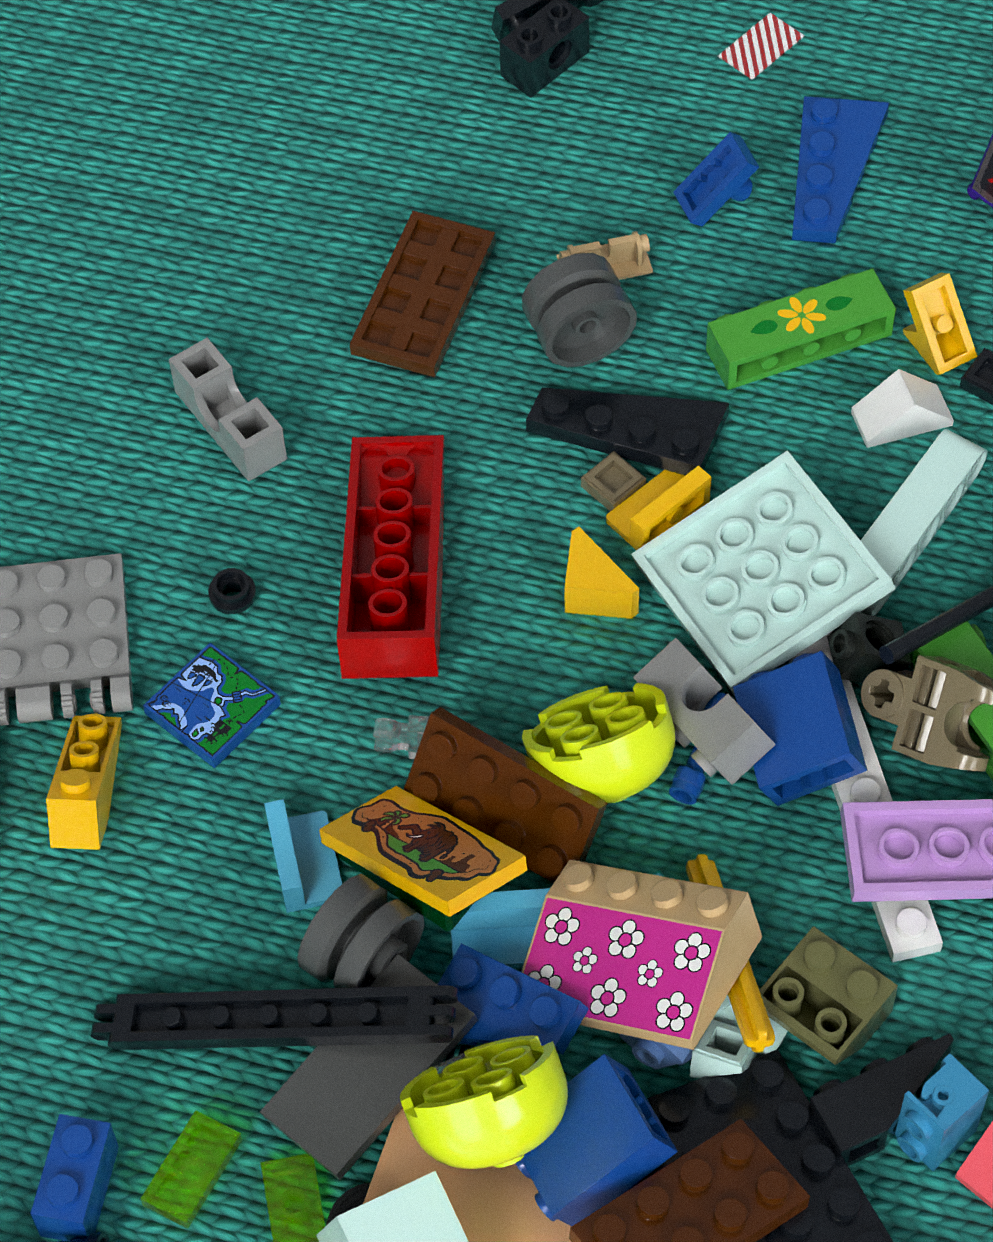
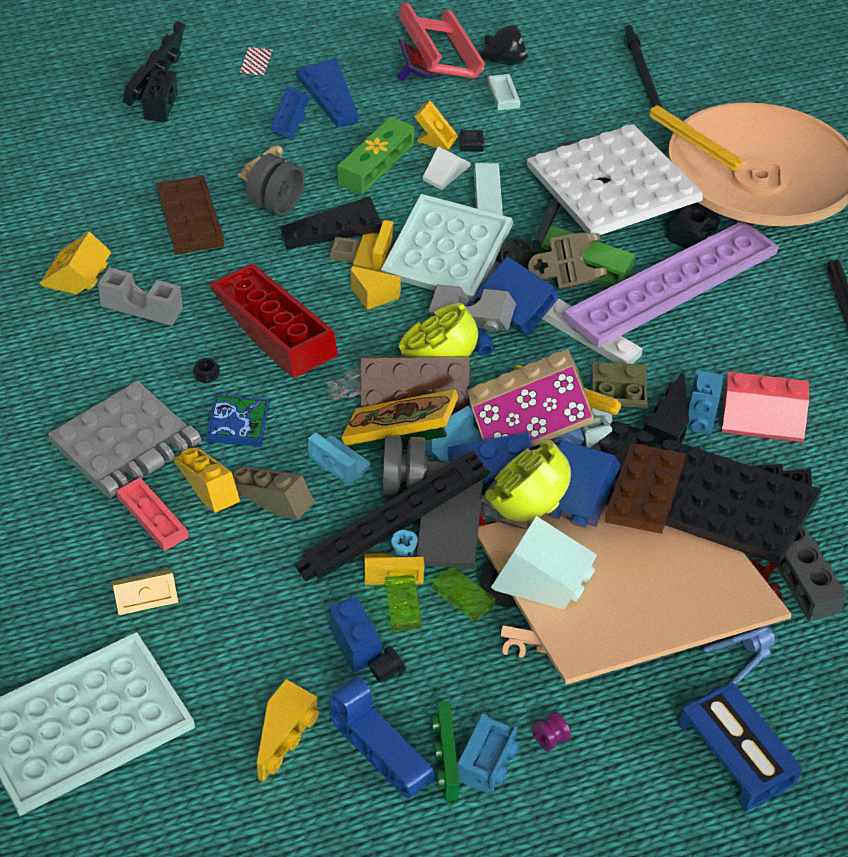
camera: 40 degrees left, 10 degrees down
(157, 859) = (275, 491): none -> dark tan slope
(189, 303) = (77, 265): none -> yellow slope
(226, 1095) = (382, 565): none -> yellow panel
(245, 1074) = (407, 546): none -> medium azure bush

